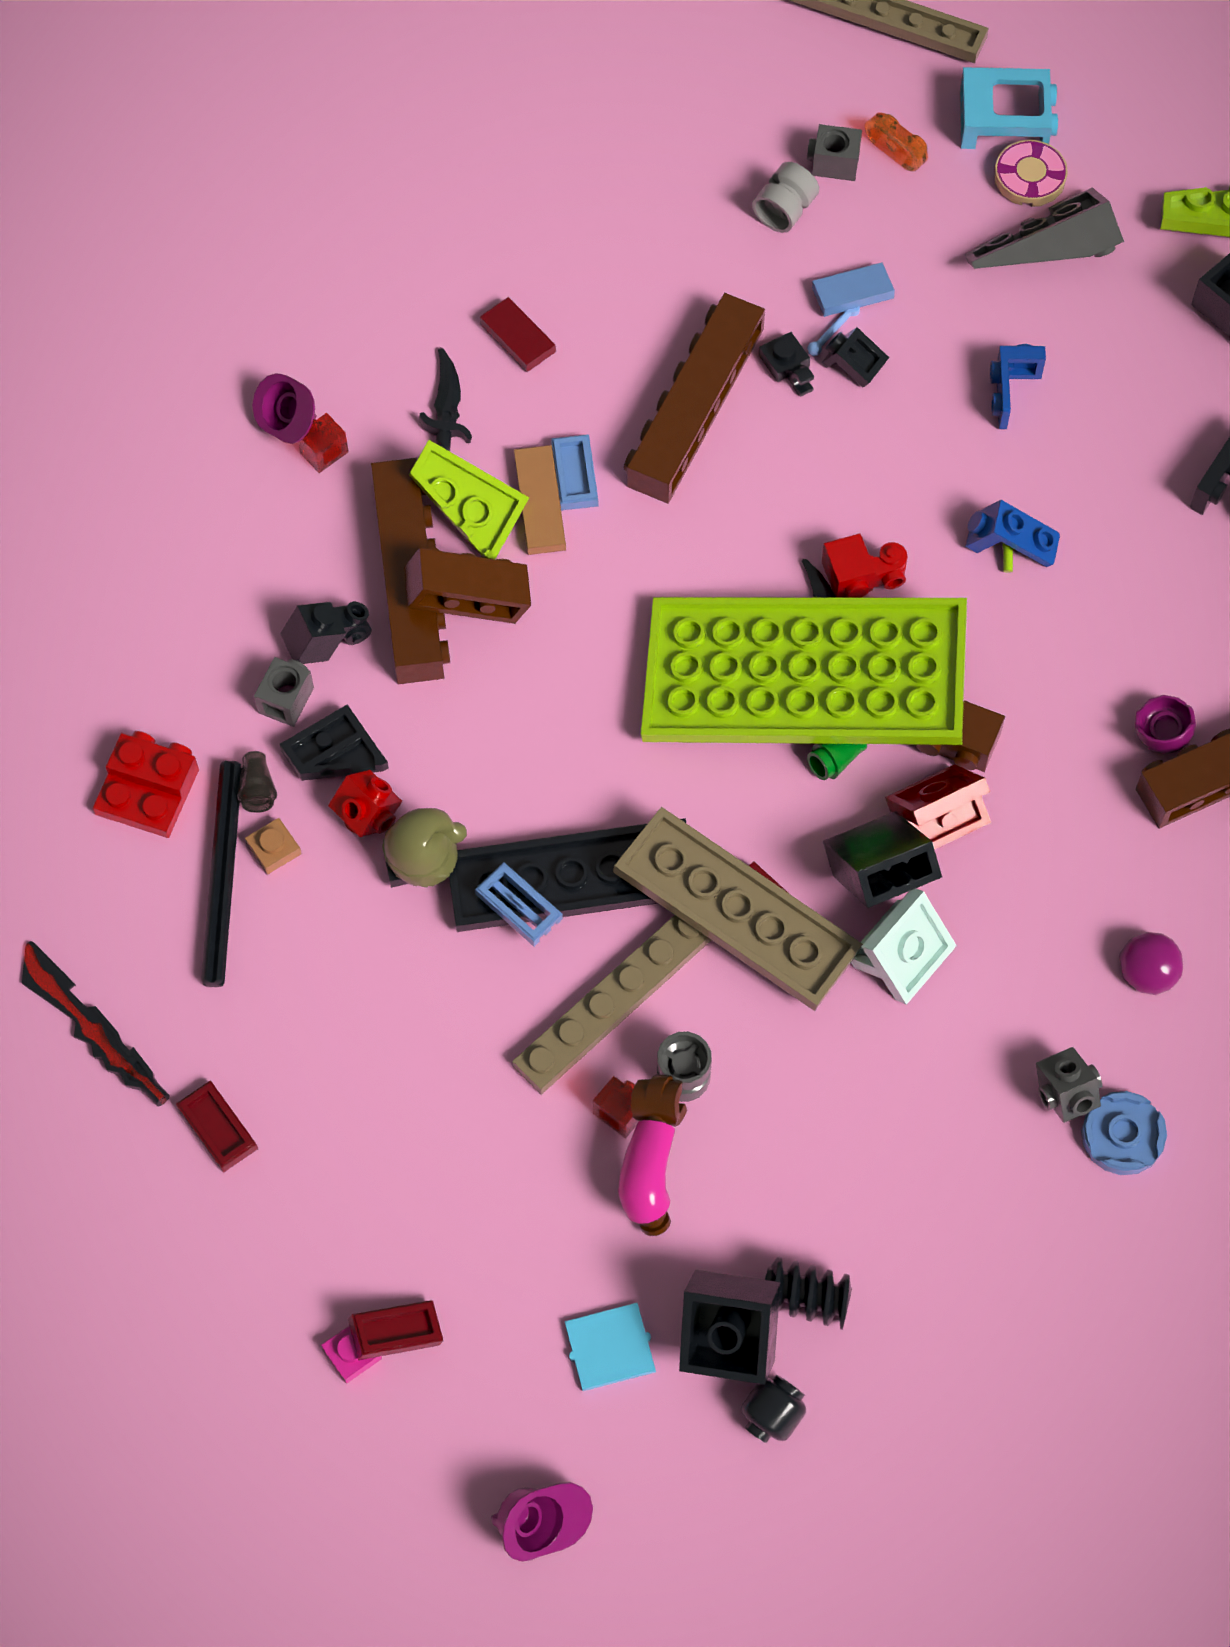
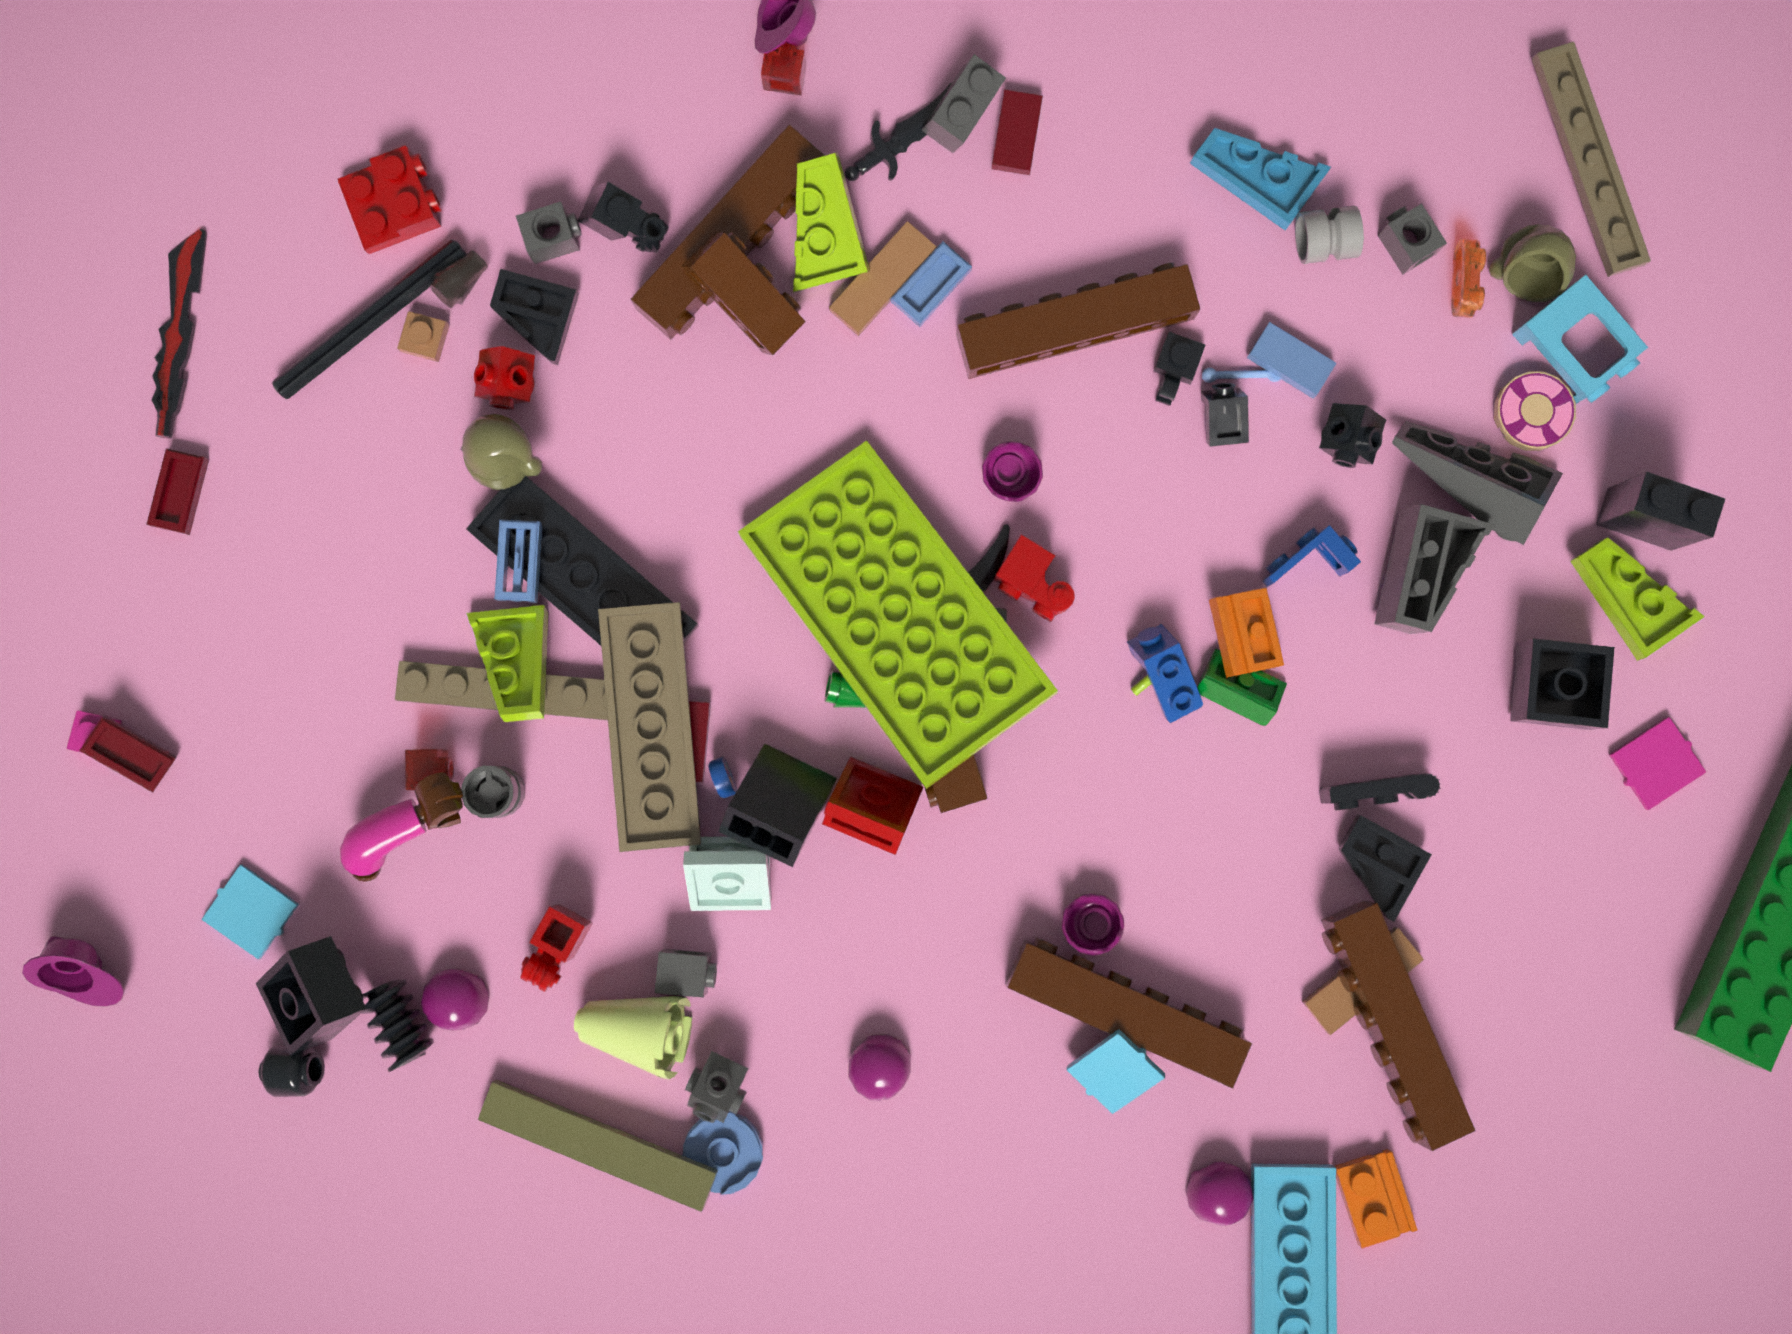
camera: 50 degrees right, 20 degrees up
(466, 346) = (963, 104): none -> dark grey brick
(592, 967) = (514, 658): none -> lime wing
(706, 209) = (1261, 178): none -> dark azure wing
(769, 517) = (1012, 471): none -> magenta hair
(822, 894) = (722, 777): none -> blue tile
(824, 1238) = (454, 999): none -> magenta hair
(845, 1113) = (557, 942): none -> red brick
(926, 92) = (1536, 263): none -> olive piece
(945, 287) = (1352, 434): none -> black brick
(953, 1042) = (685, 973): none -> dark grey brick
(970, 1108) = (638, 1030): none -> yellowish green cone
(1030, 460) = (1246, 632): none -> orange plate
(1038, 1217) = (598, 1145): none -> olive tile
(1069, 499) = (1249, 694): none -> green slope
(1084, 313) = (1425, 565): none -> dark grey wedge
(1174, 143) = (1660, 511): none -> black brick

